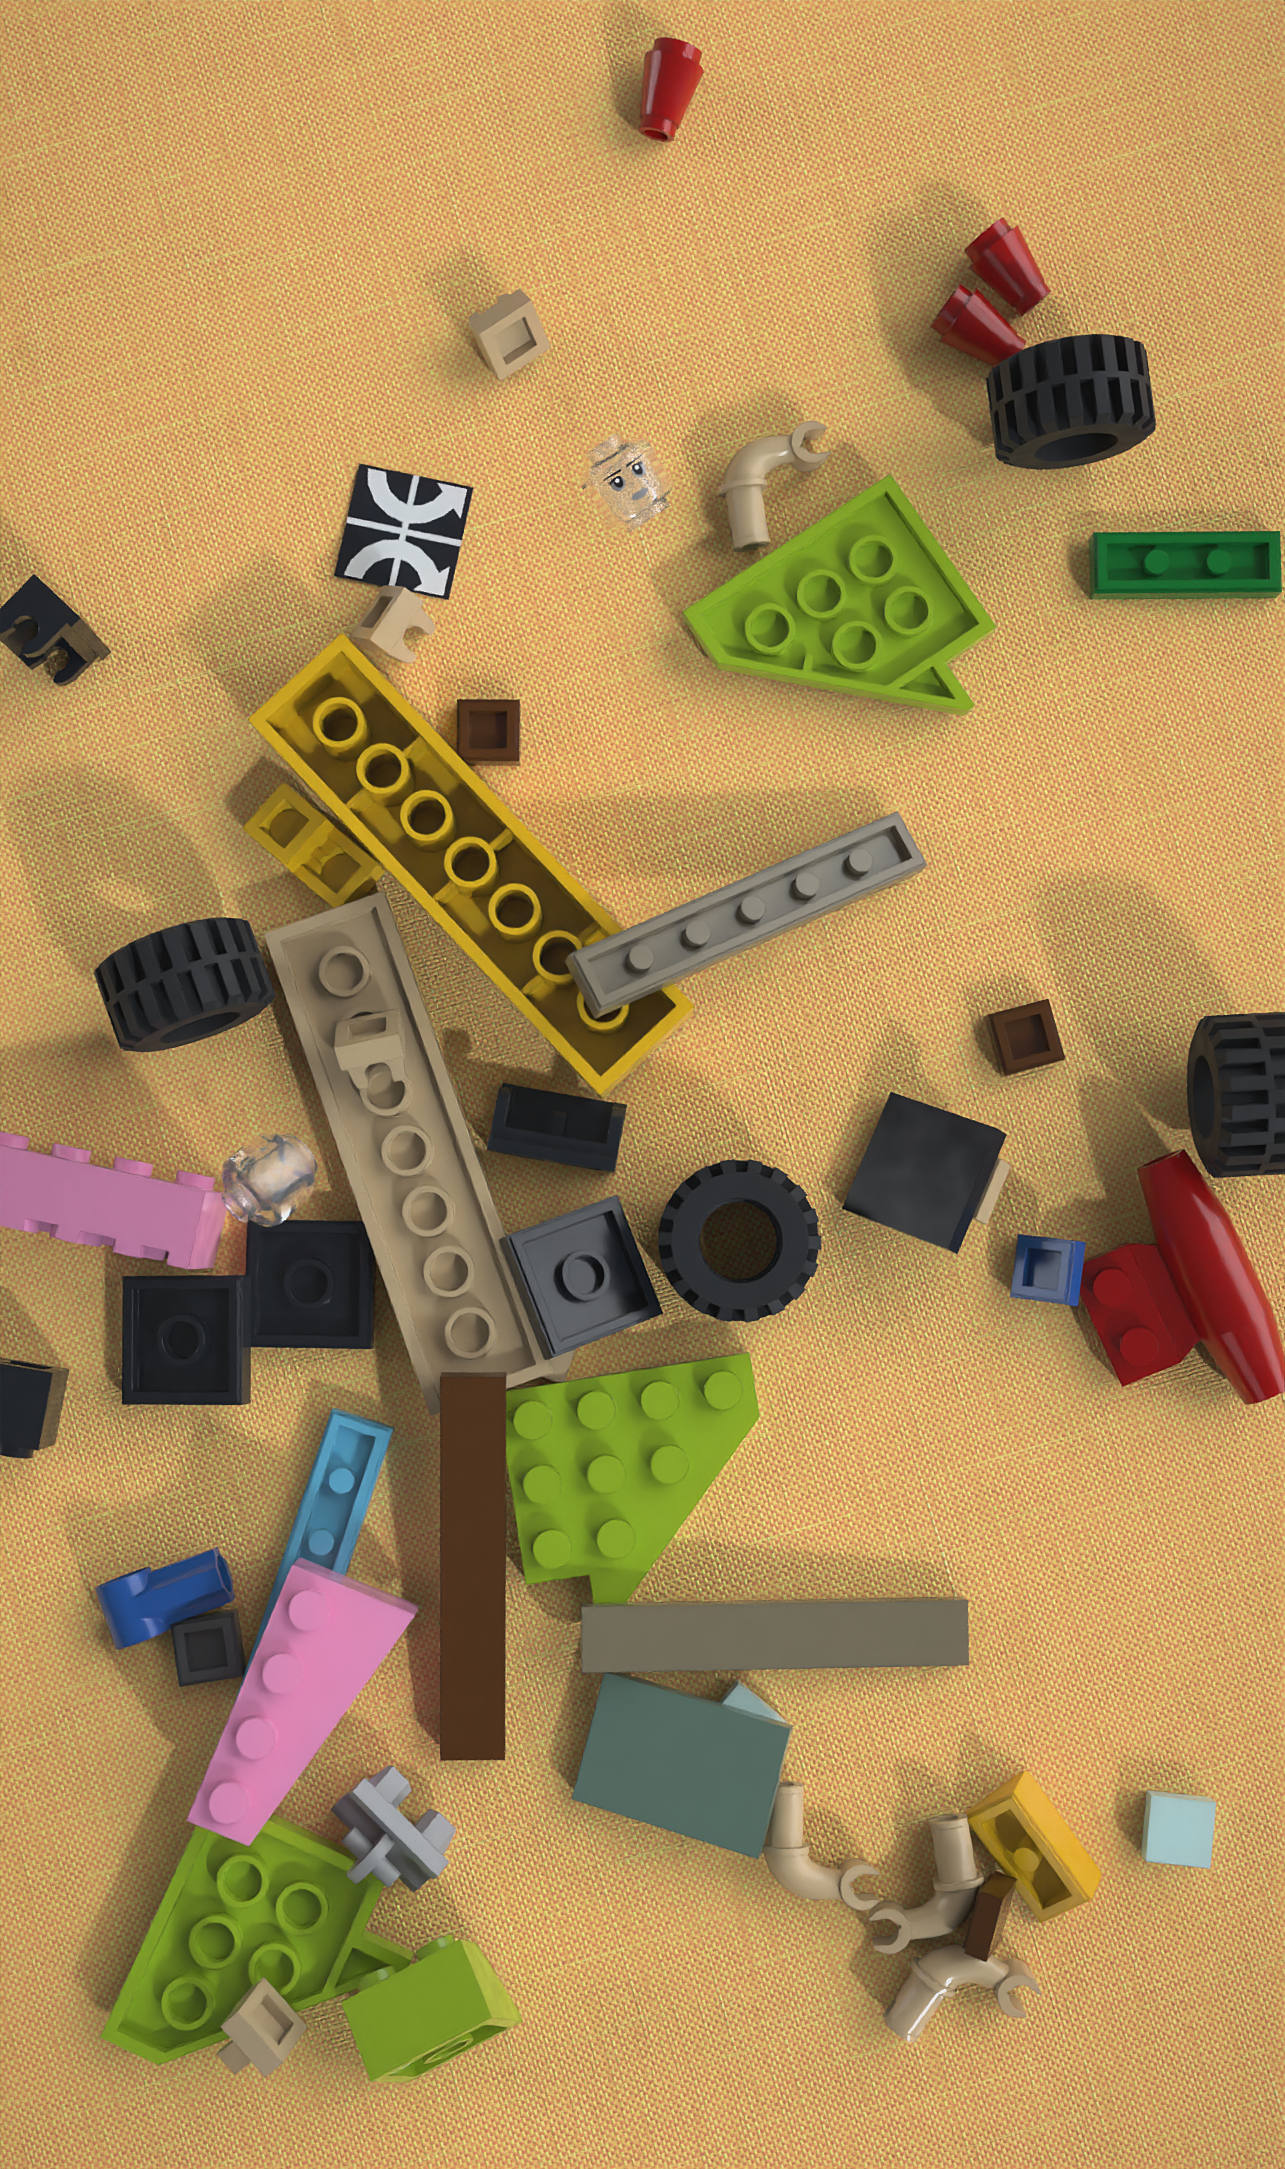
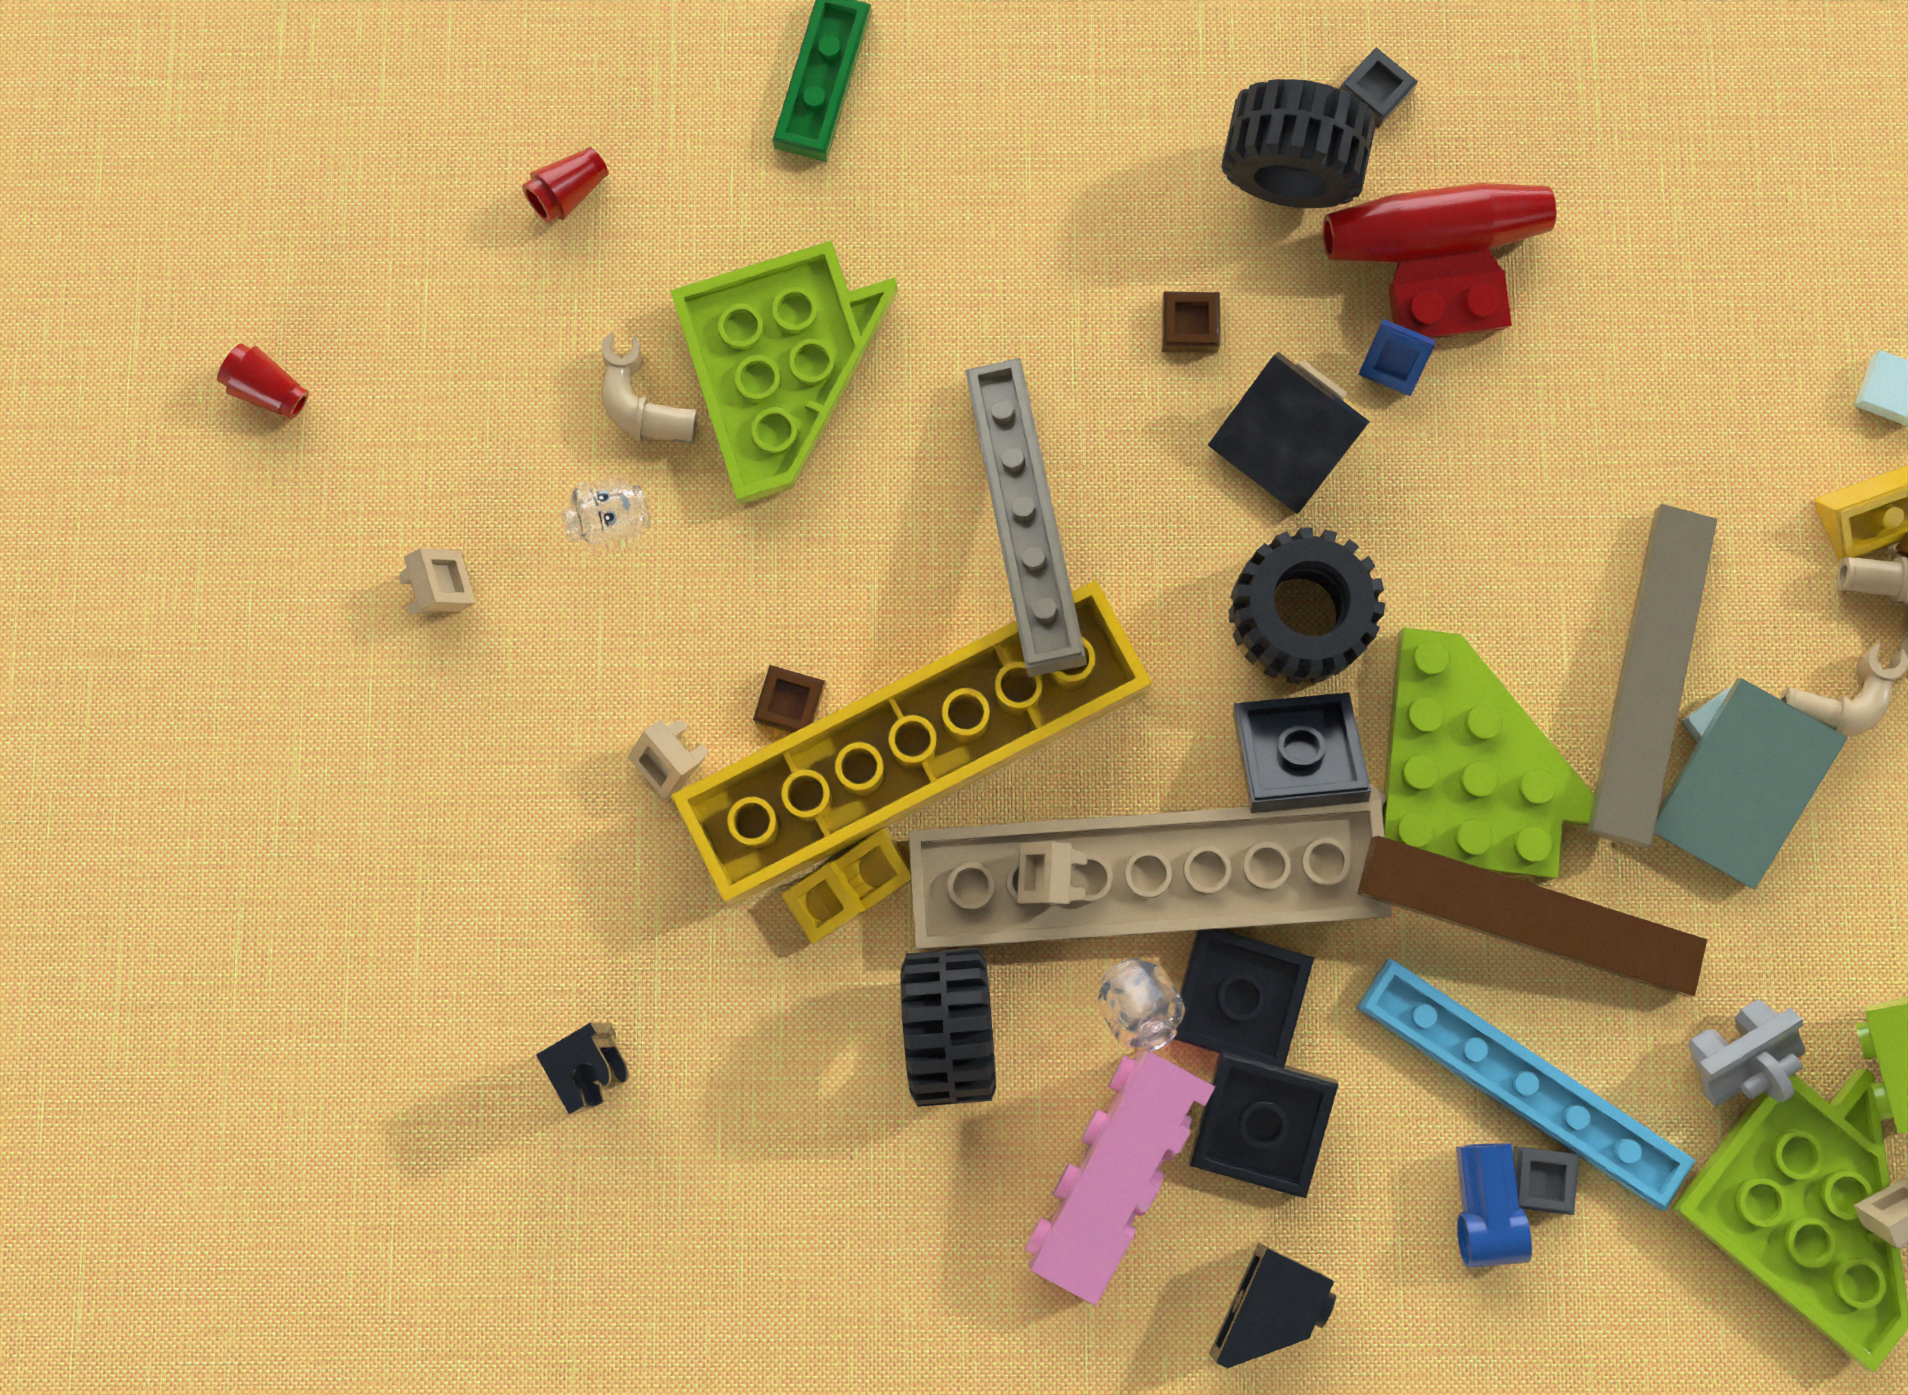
camera: 75 degrees left, 5 degrees down
(303, 1678) = (1606, 1096): bright pink wedge -> none
(404, 531) = (583, 727): sticker -> none
(557, 1128) = (1162, 736): black hinge -> none
(1007, 266) = (518, 143): red cone -> none
(1071, 401) = (661, 118): black tyre -> none

